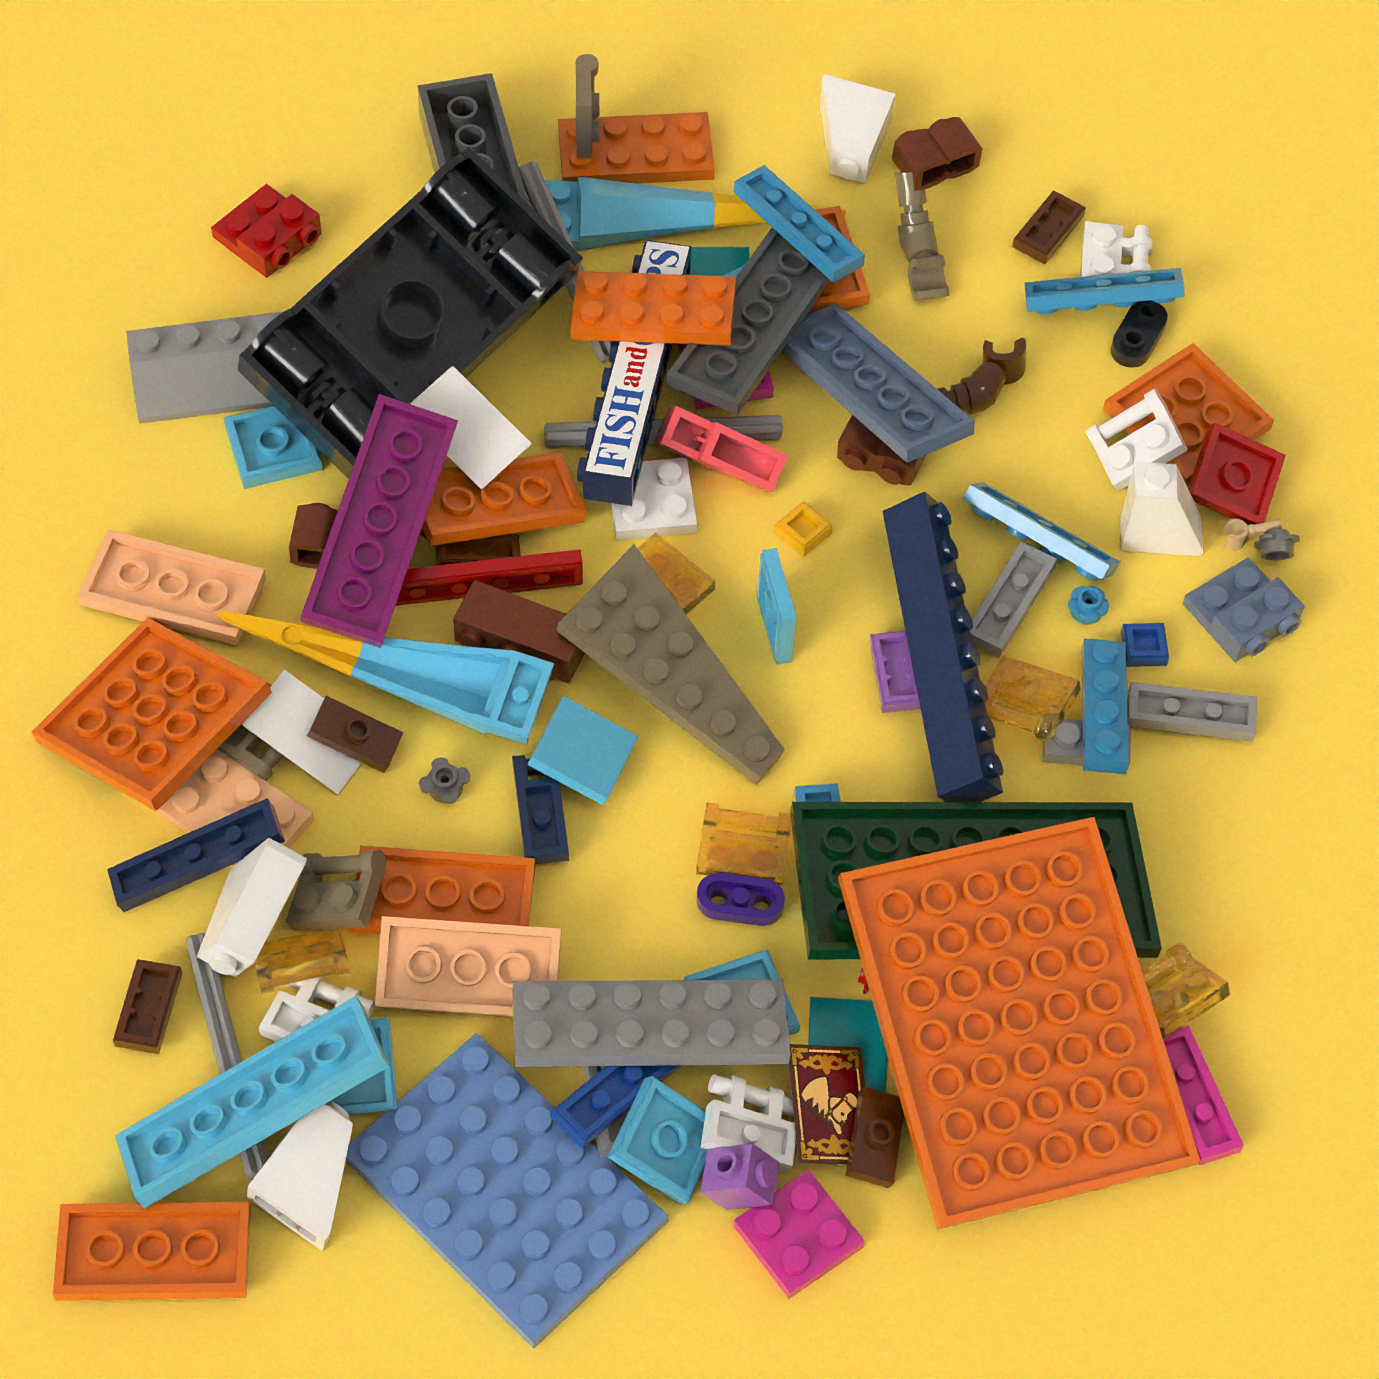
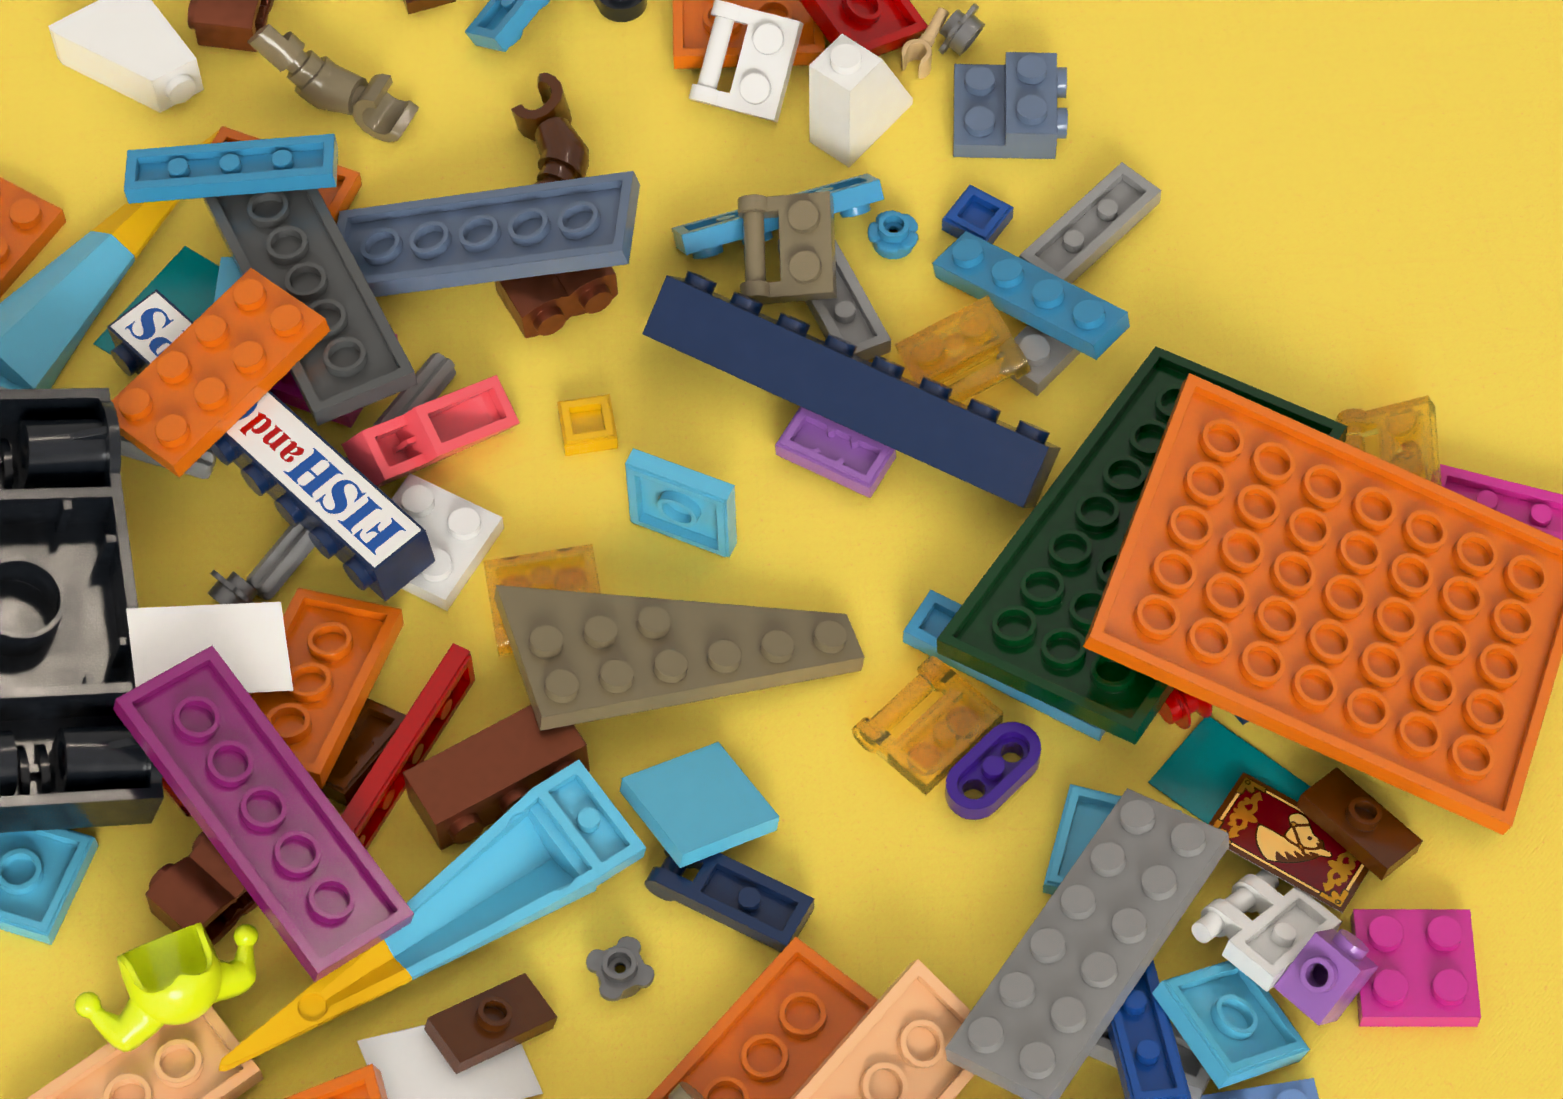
camera: 50 degrees left, 0 degrees up
(249, 554) = (171, 984): none -> neon yellow piece
(530, 423) = (232, 590): none -> flat silver plate
(1019, 555) = (804, 244): none -> dark tan plate

